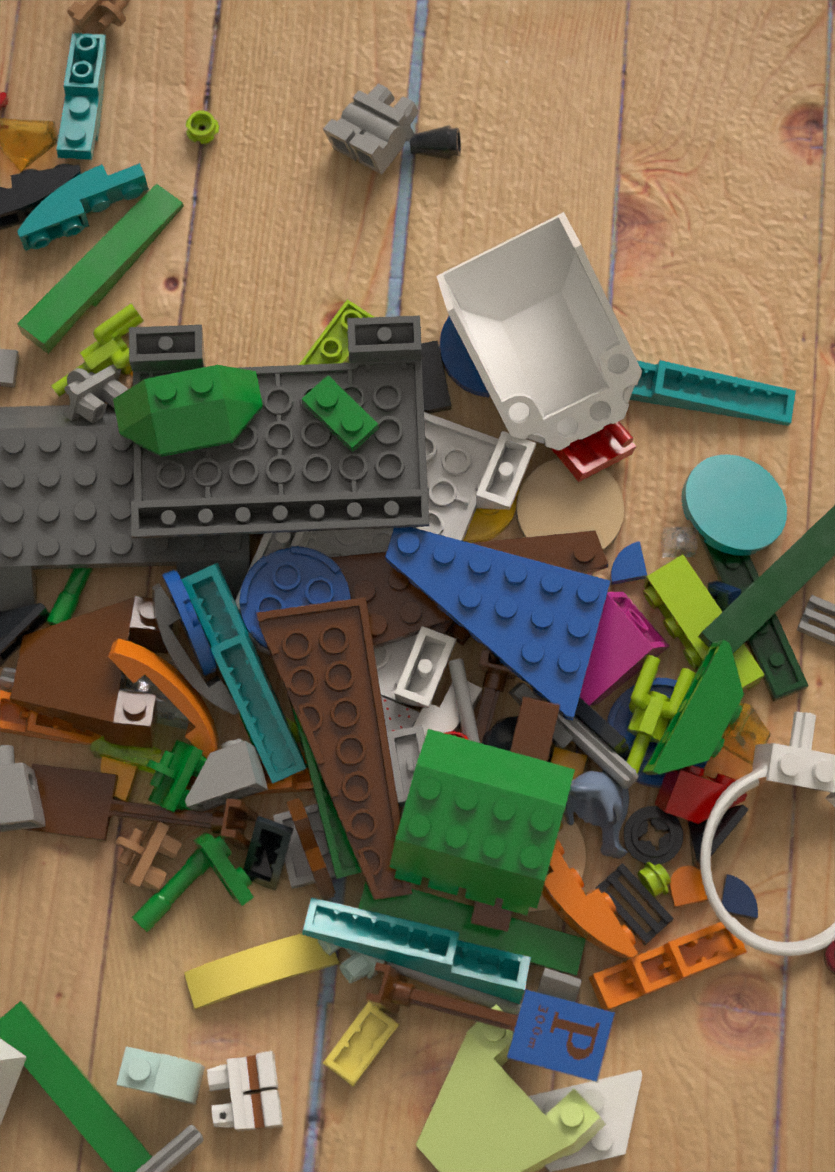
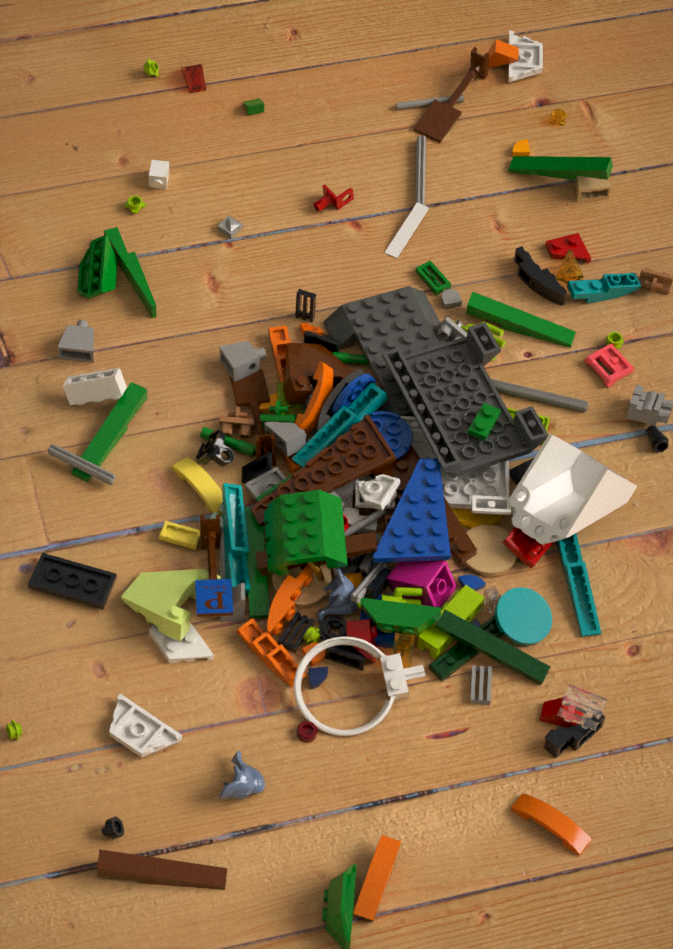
camera: 65 degrees right, 20 degrees down
(66, 208) = (544, 299): teal slope -> none
(161, 1075) = (134, 458): light aqua brick -> none
(189, 409) = (458, 361): green wedge -> none
(195, 920) = (213, 449): none -> black tile
(234, 880) = (238, 458): green plate -> none
(242, 1077) = (139, 496): white hips -> none
(250, 146) = (613, 361): none -> coral plate
(274, 297) = (540, 395): none -> light grey axle
(311, 849) = (271, 477): reddish brown tile -> none
(422, 656) = (379, 492): none -> white plate

